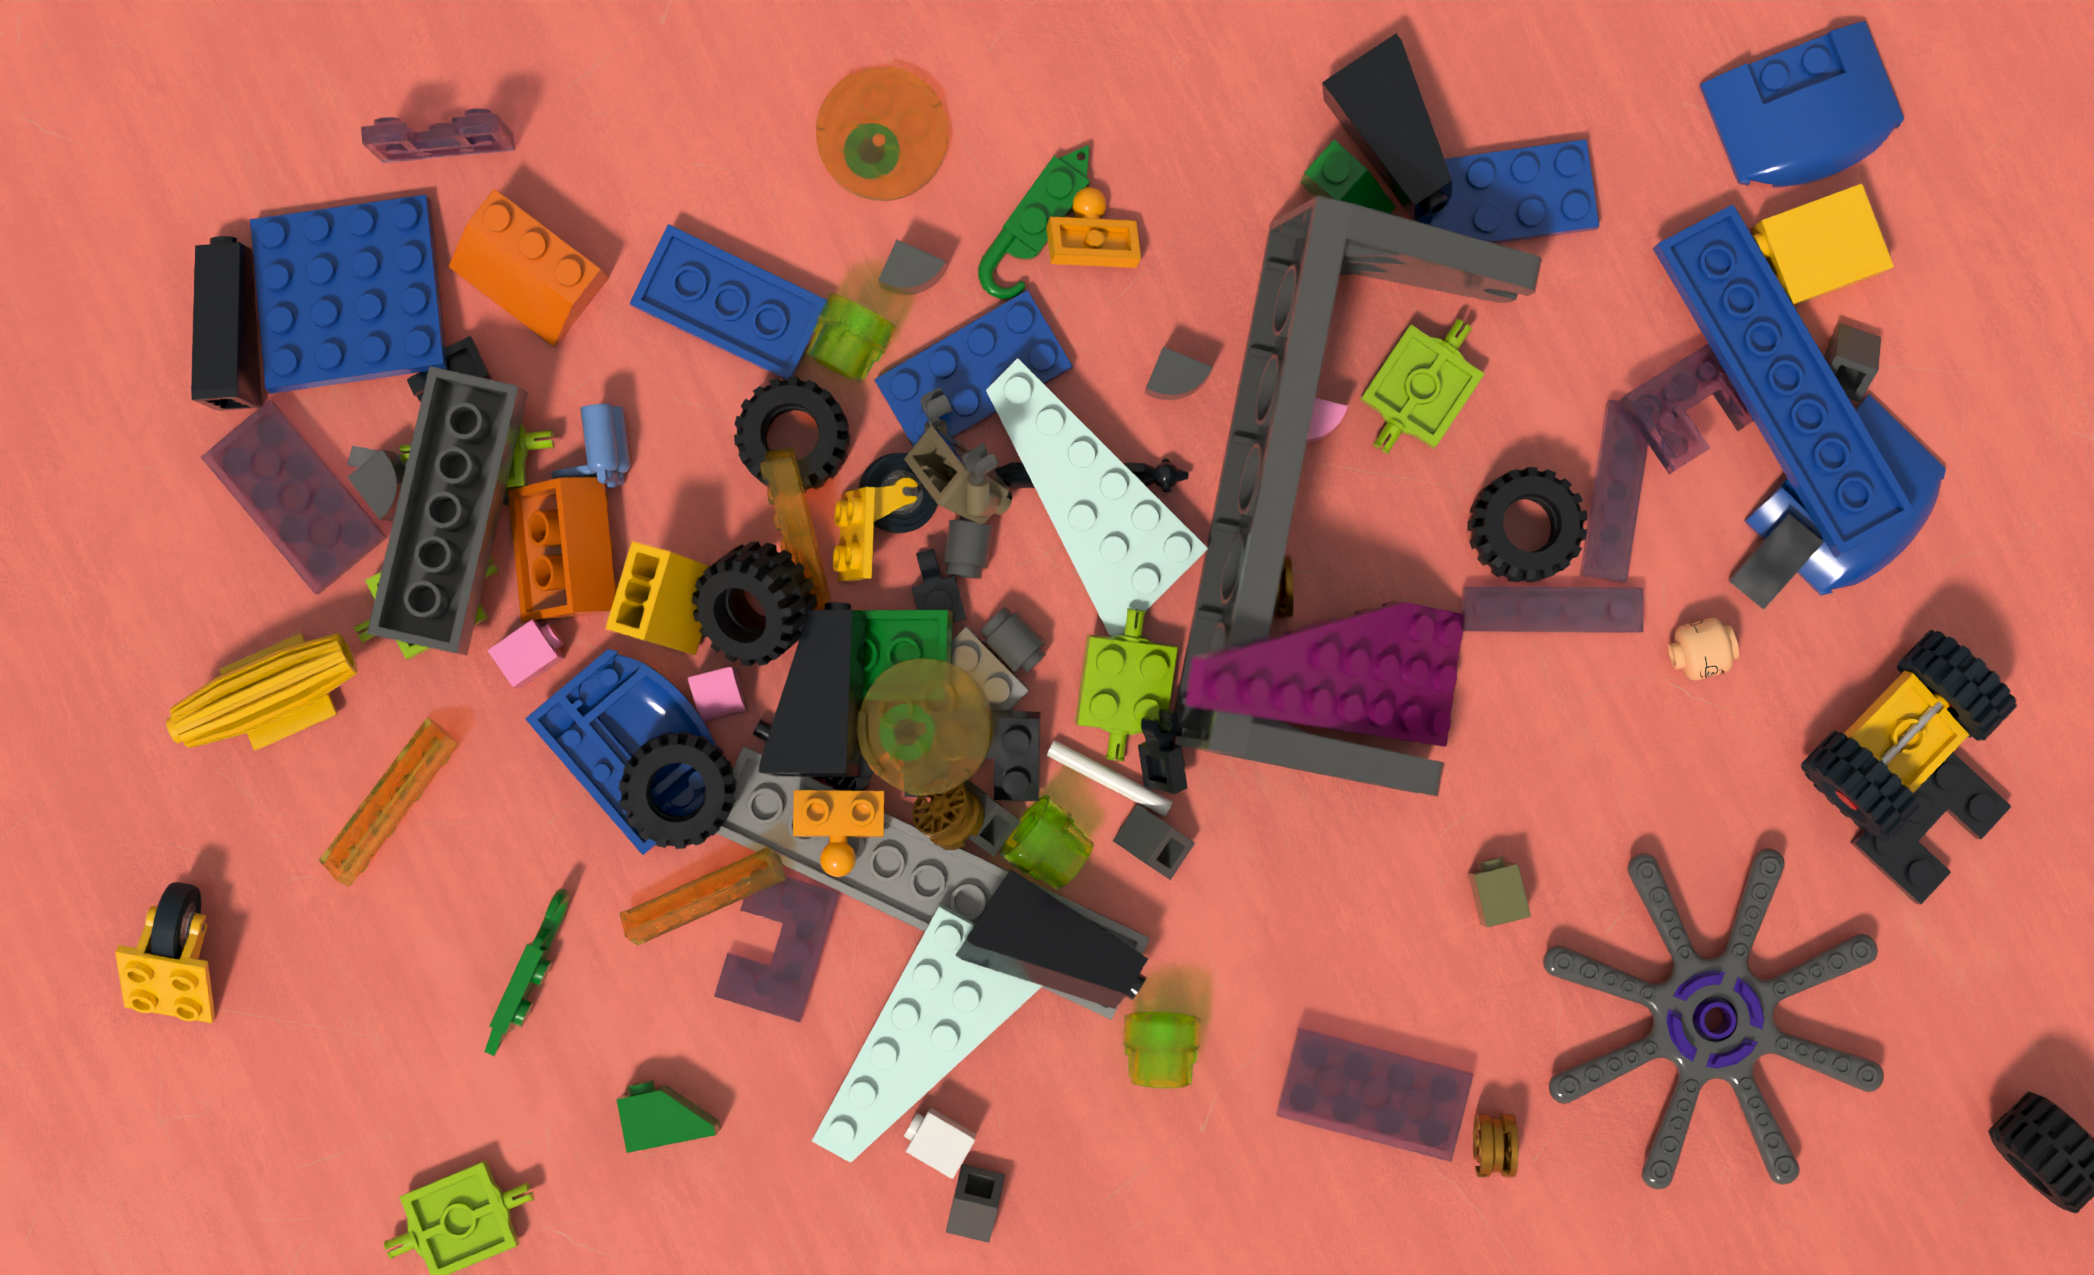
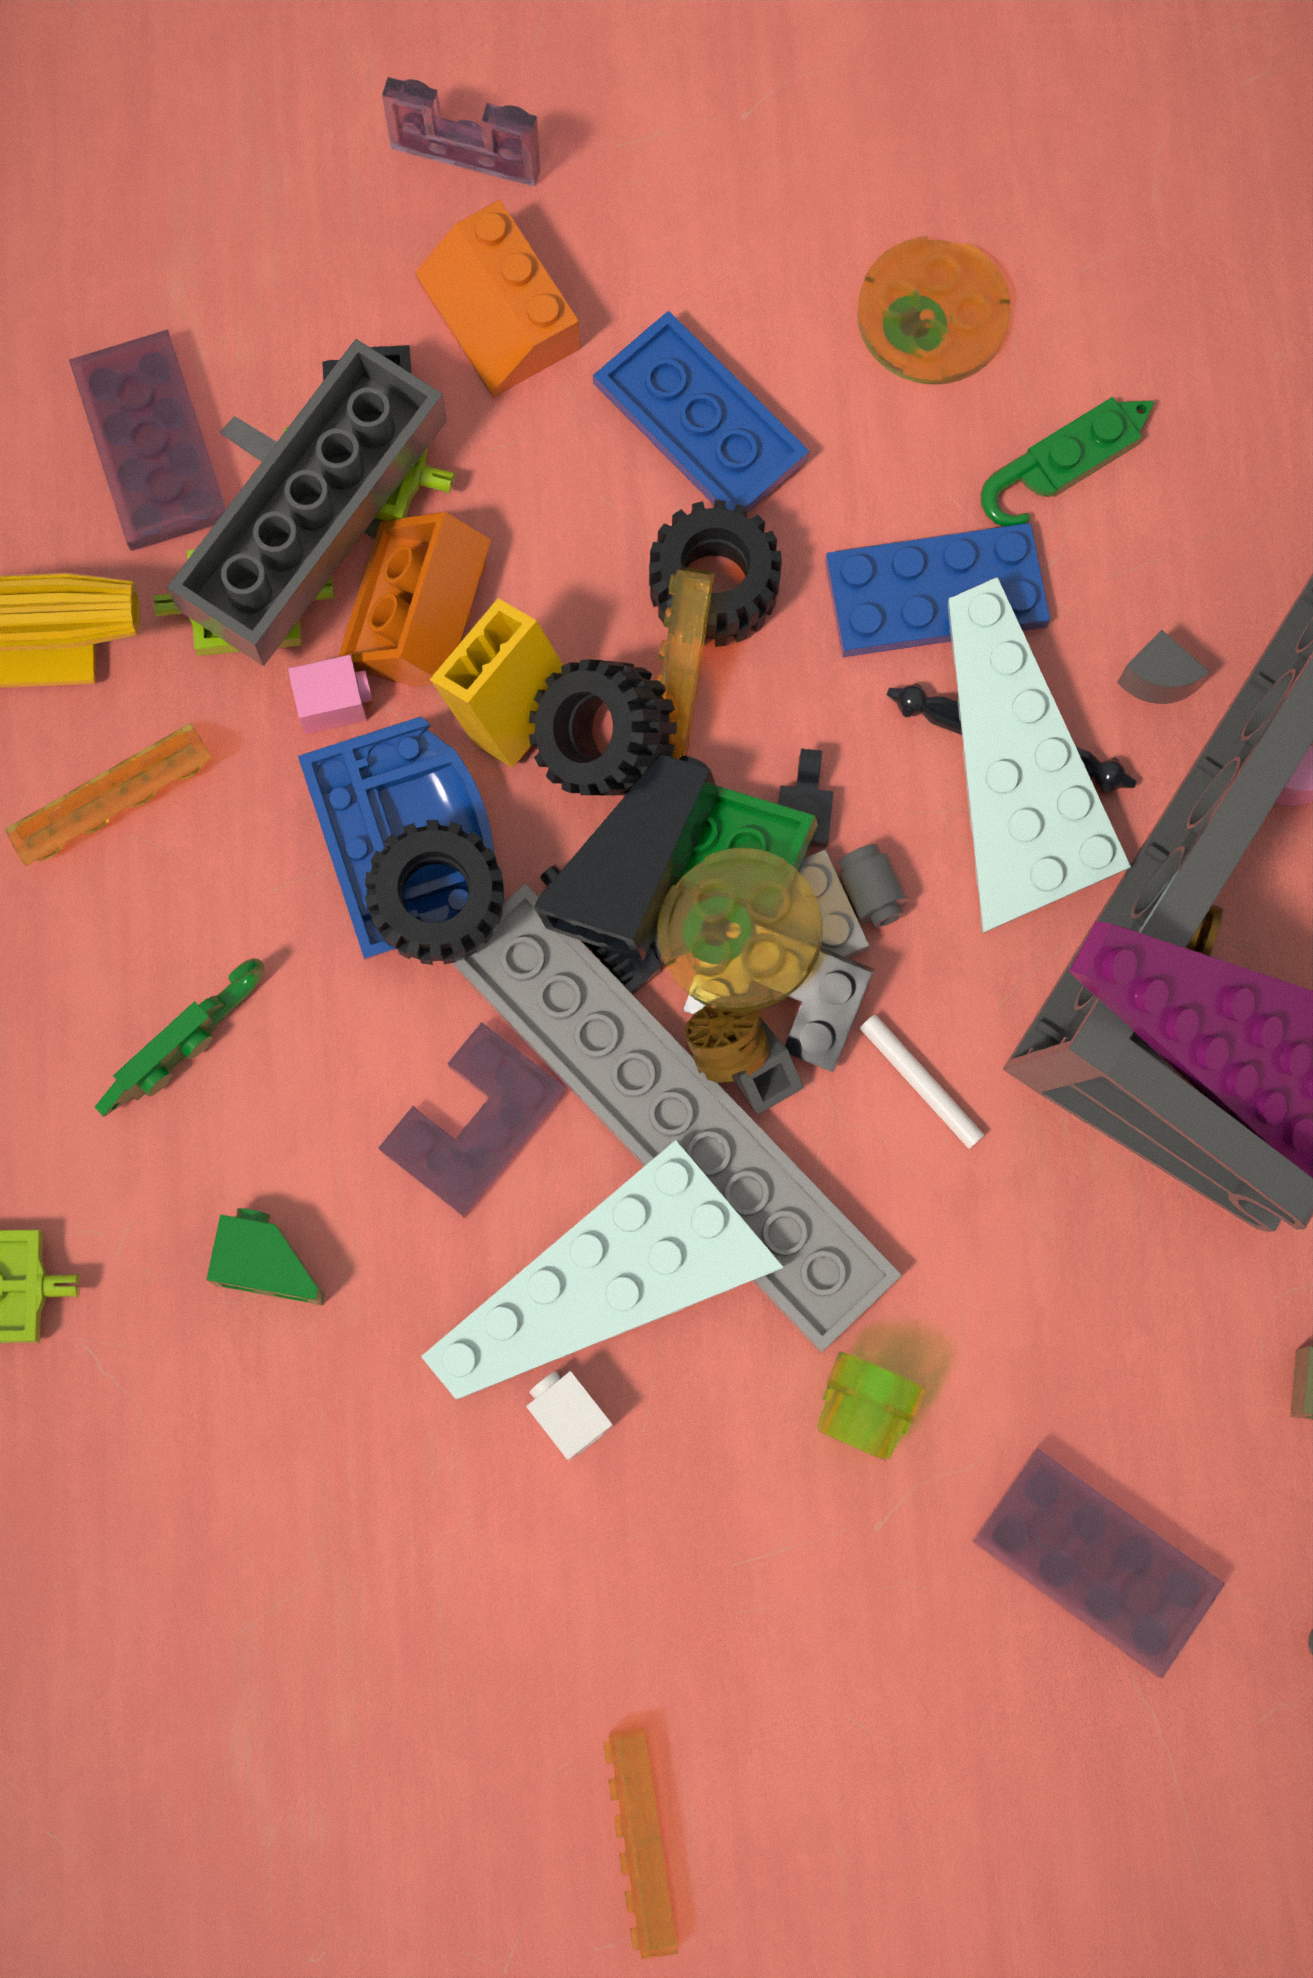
camera: 20 degrees right, 10 degrees down
(225, 327) = (152, 241): black slope -> none
(348, 294) = (296, 255): blue plate -> none
(380, 483) = (244, 450): dark grey brick -> none
(604, 446) = (506, 505): medium blue piece -> none
(702, 896) = (412, 1028): clear yellow piece -> none
(718, 693) = (520, 815): bright pink brick -> none
(838, 817) = (599, 998): light orange plate -> none
(849, 337) = (820, 493): clear neon green piece -> none
(886, 498) = (801, 679): yellow plate -> none
(910, 270) = (912, 454): dark grey brick -> none
(952, 472) = (879, 670): dark tan torso -> none
(967, 548) = (861, 764): dark grey brick -> none
(975, 1203) = (580, 1504): dark grey brick -> none
(1047, 844) = (826, 1121): clear neon green piece -> none
(1052, 945) = (789, 1232): black slope -> none
(1091, 239) = (1122, 494): light orange plate -> none
(1123, 682) = (981, 981): lime plate -> none
(1153, 842) = (947, 1169): dark grey brick -> none
(1161, 760) = (989, 1076): black plate -> none
(1495, 1144) = (1223, 1678): pearl gold wheel -> none

